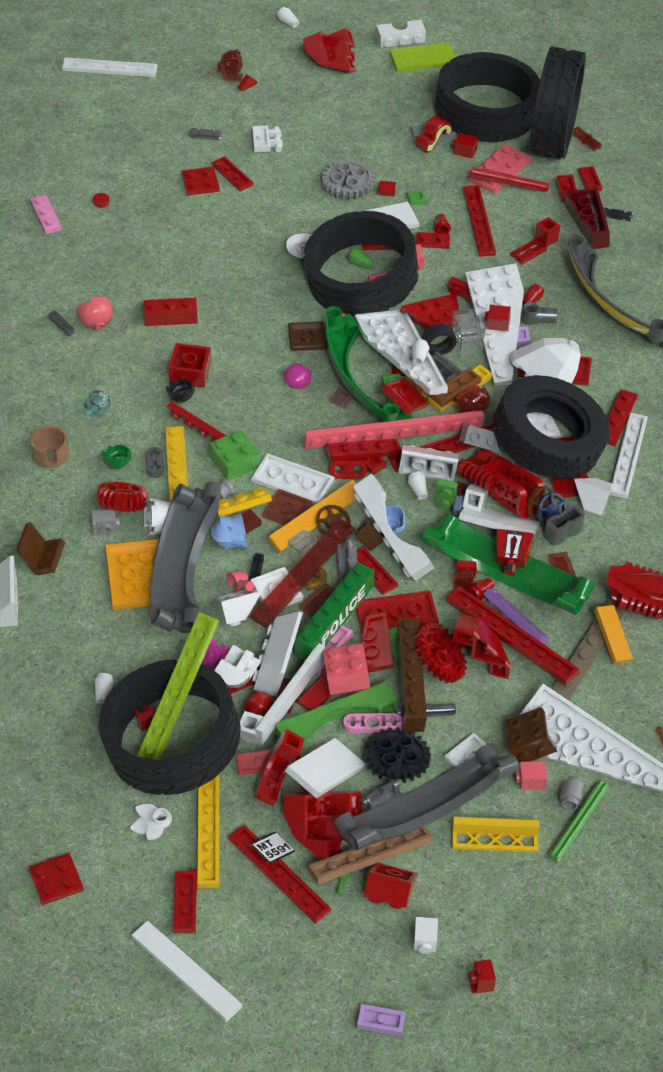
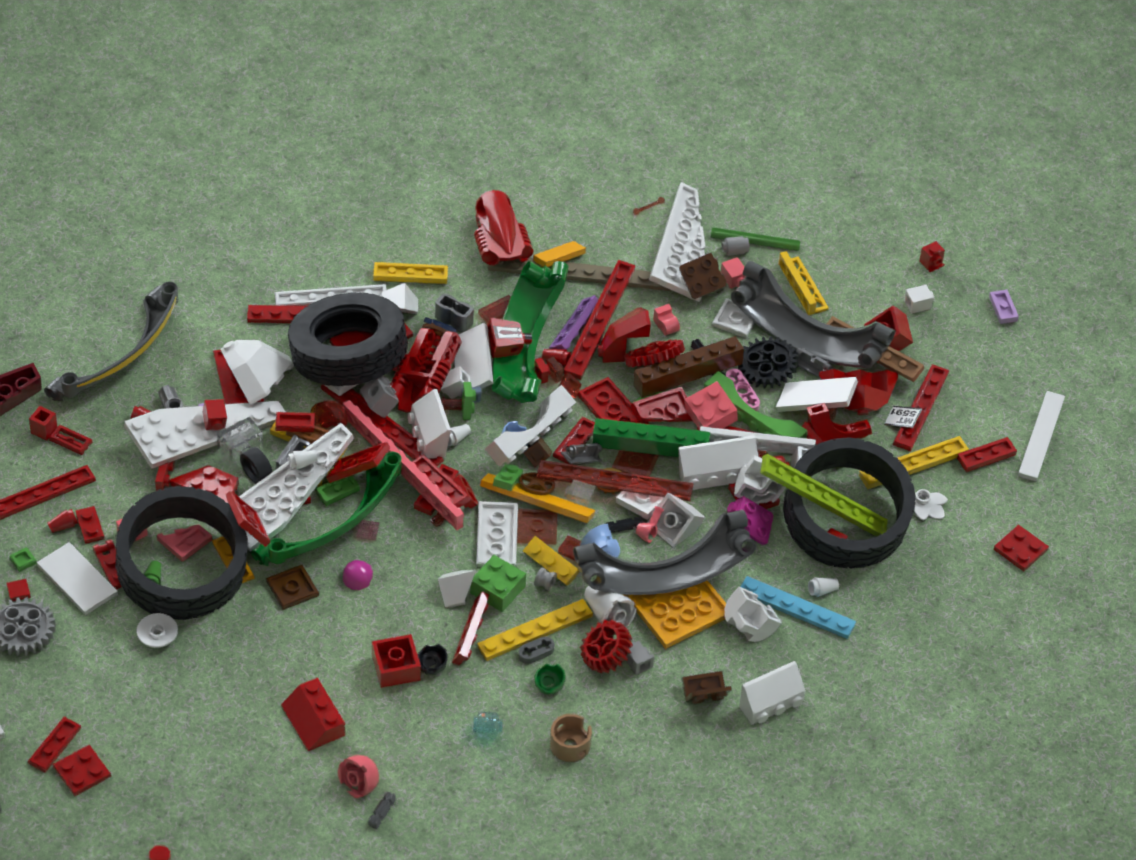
camera: 115 degrees left, 0 degrees up
(92, 661) = (800, 608): none -> medium azure plate
(96, 611) = (751, 615): none -> white brick
(251, 426) = (455, 587): none -> white slope
(345, 499) = (508, 477): none -> bright green plate
(368, 298) = (247, 518): none -> red tile
(435, 582) = (571, 384): none -> clear red tile
(473, 372) = (295, 422): none -> red tile
(490, 692) = (666, 320): none -> coral leg
(635, 517) = (410, 273): none -> yellow plate

